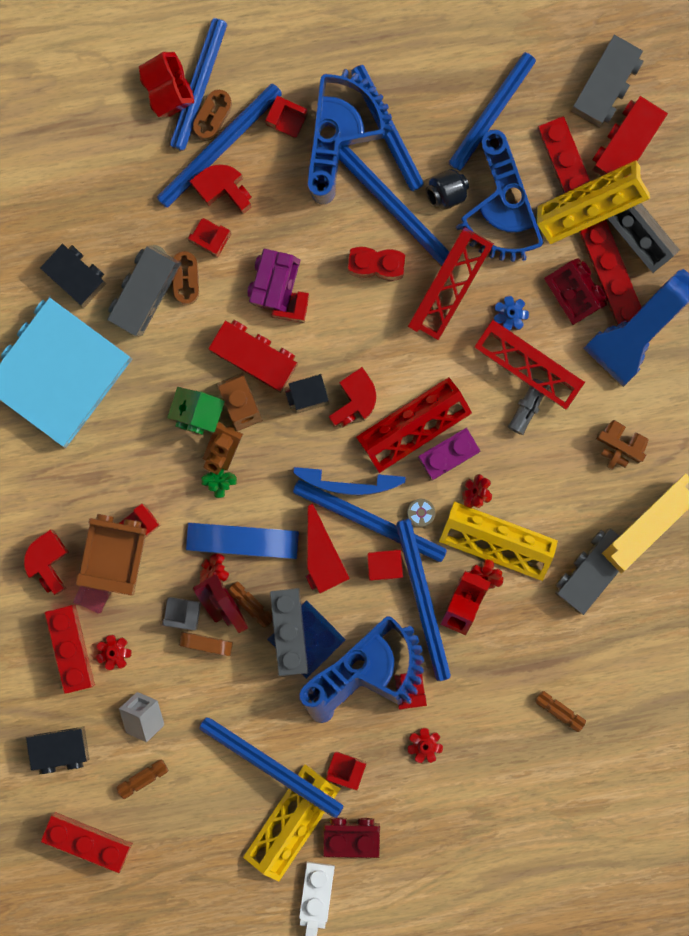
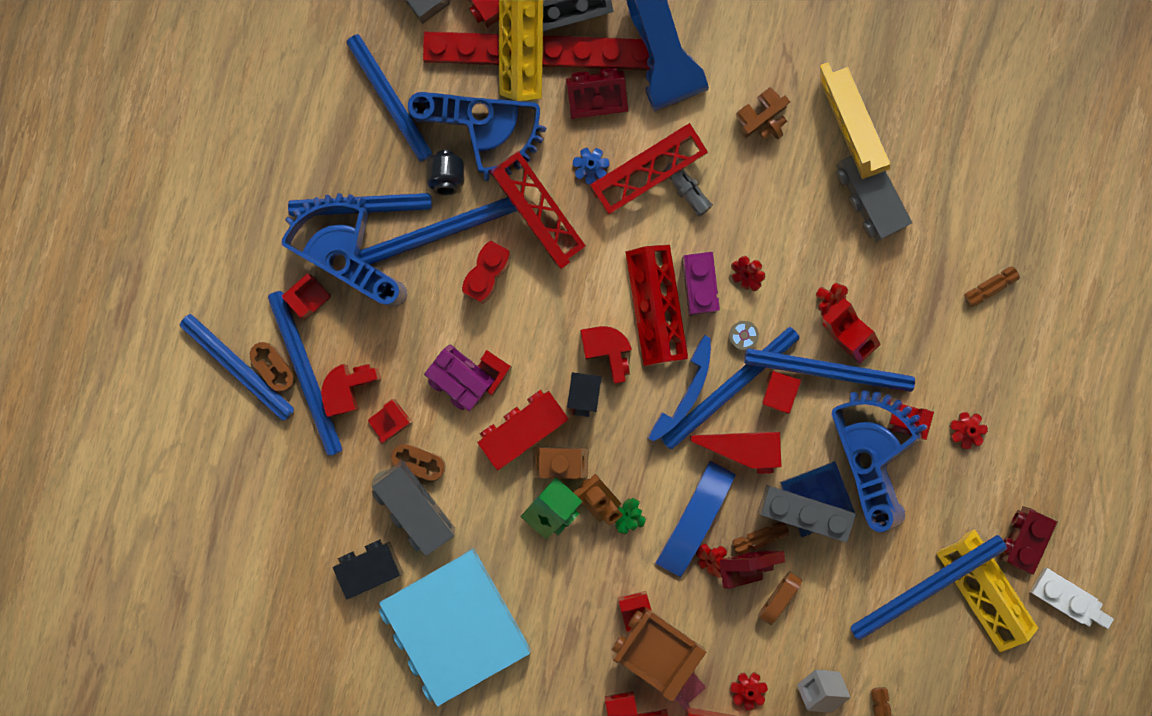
camera: 60 degrees left, 0 degrees up
(166, 84) = (222, 398): red brick -> none
(182, 613) = (741, 608): flat silver panel -> none
(346, 770) = (961, 516): red panel -> none
(500, 536) = (801, 269): yellow fence -> none

